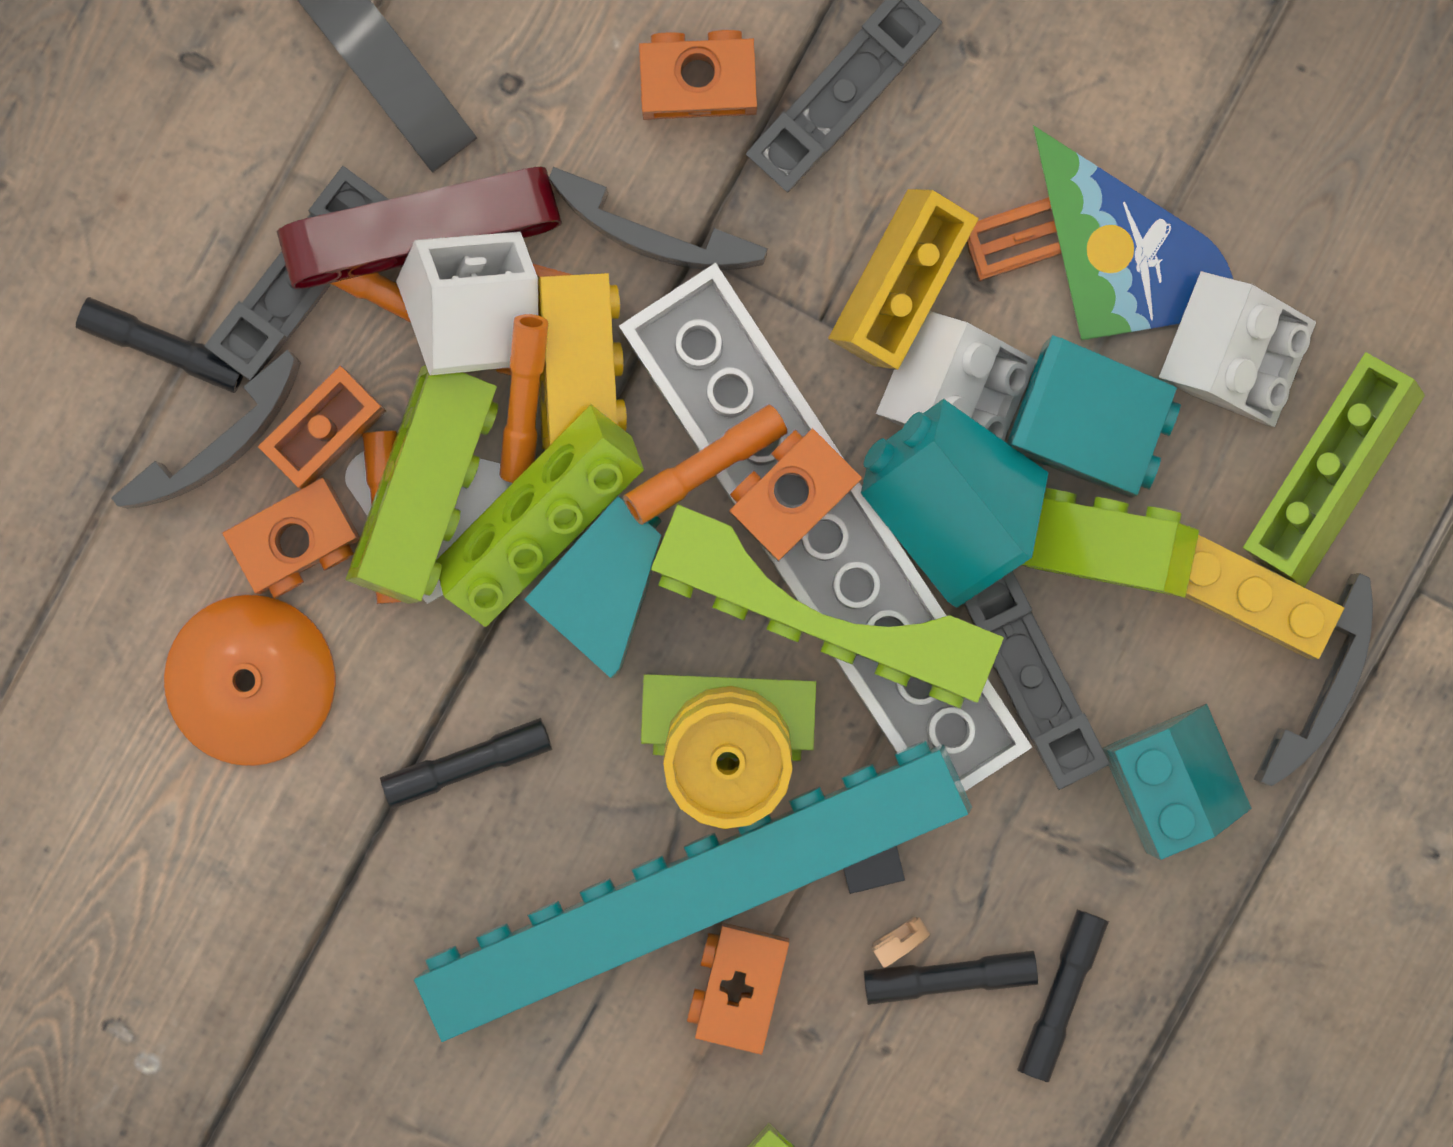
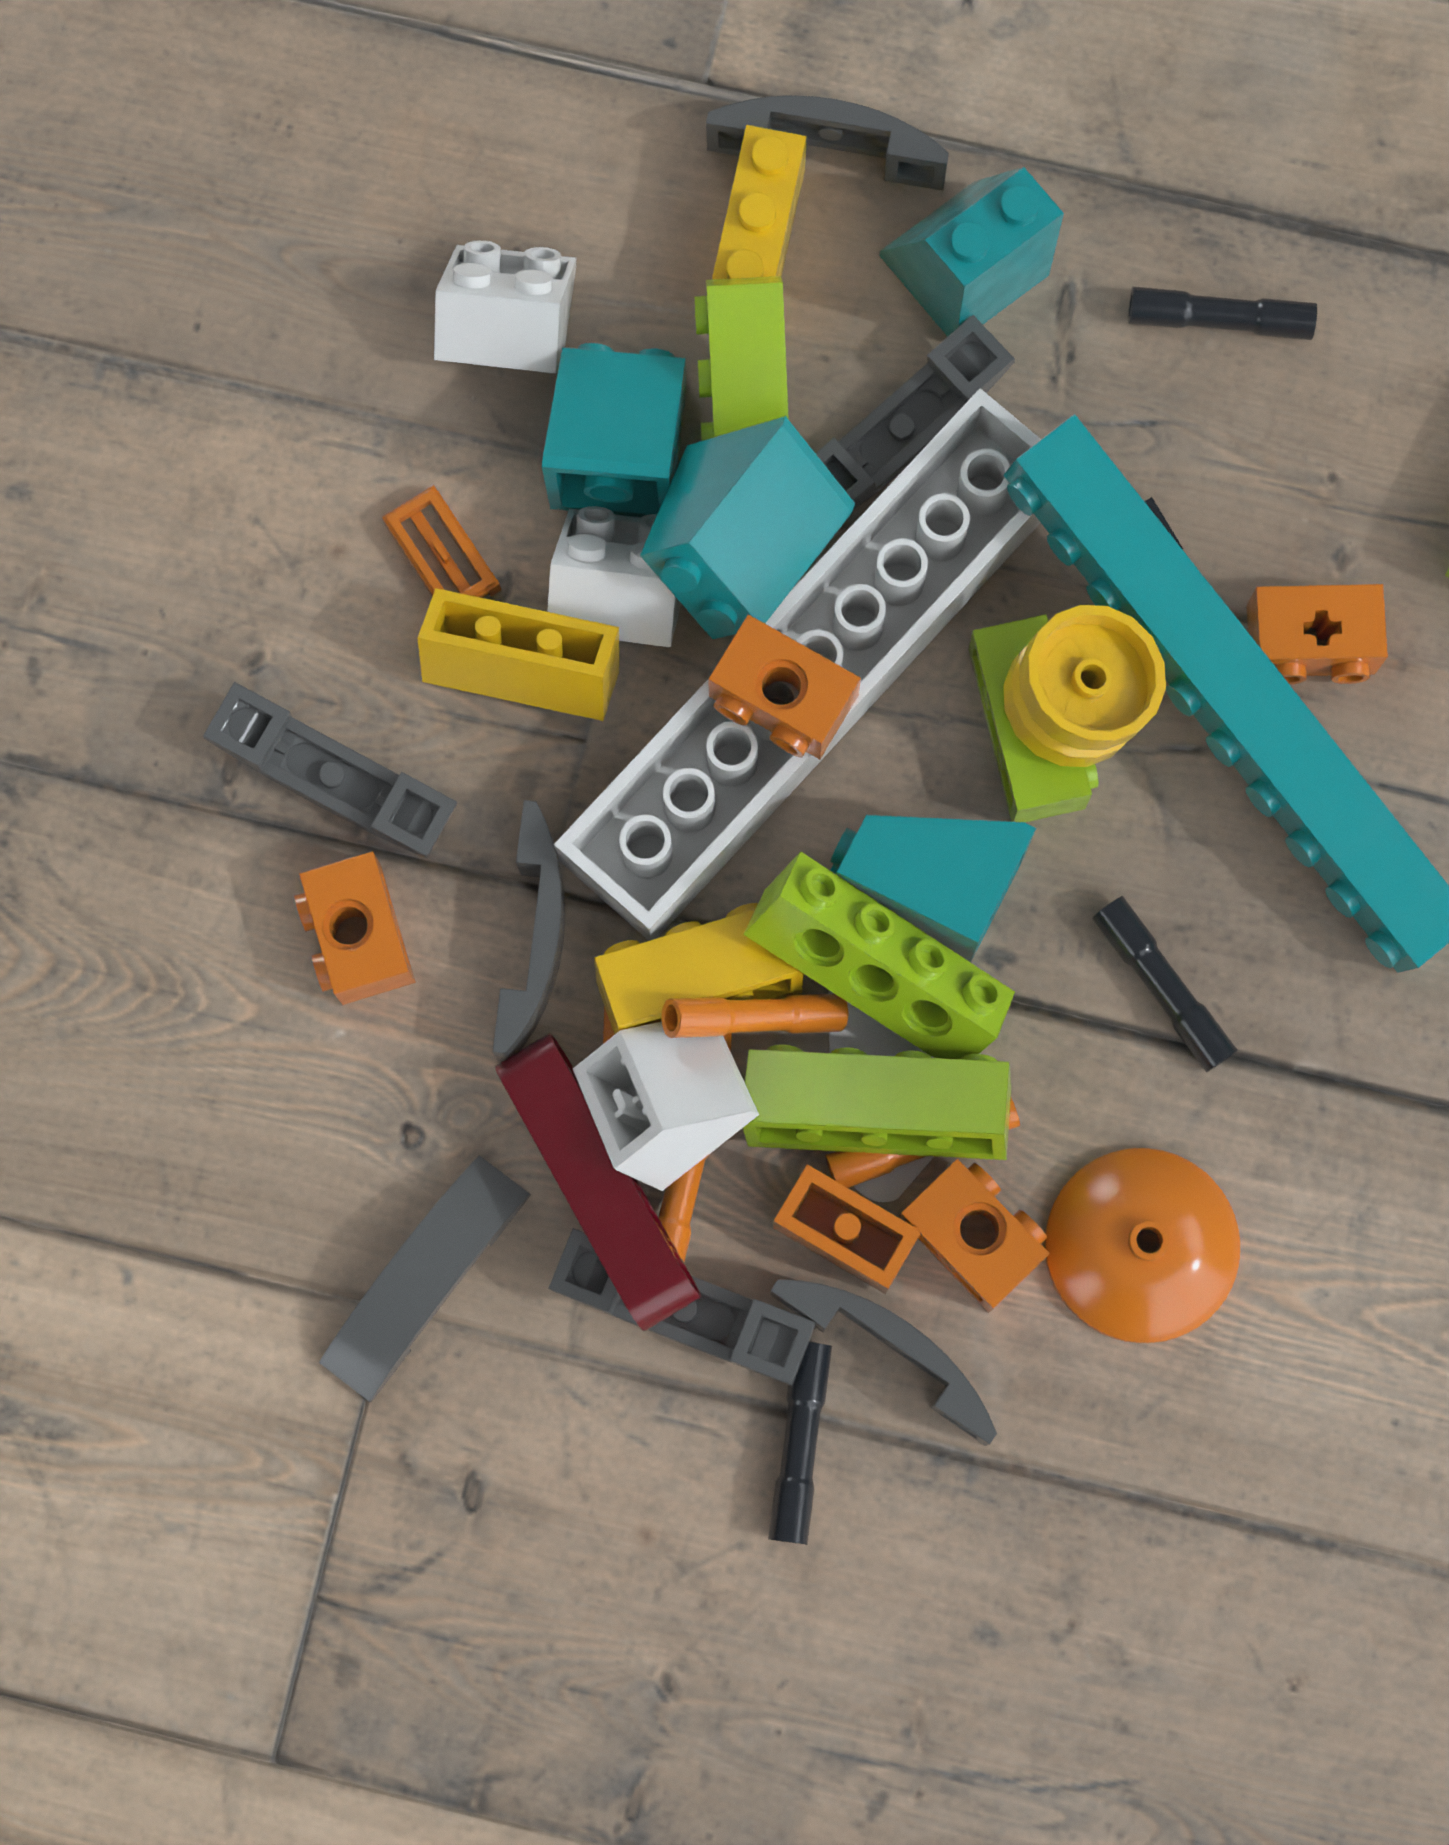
camera: 105 degrees left, 10 degrees down
(675, 483) = (807, 812): orange piece -> none
(900, 941) = (1219, 487): light nougat tile -> none
(940, 652) = (908, 502): lime arch -> none
(986, 973) = (1253, 461): black piece -> none
(1121, 252) = (432, 447): sticker -> none
(1334, 470) = (605, 176): lime brick -> none

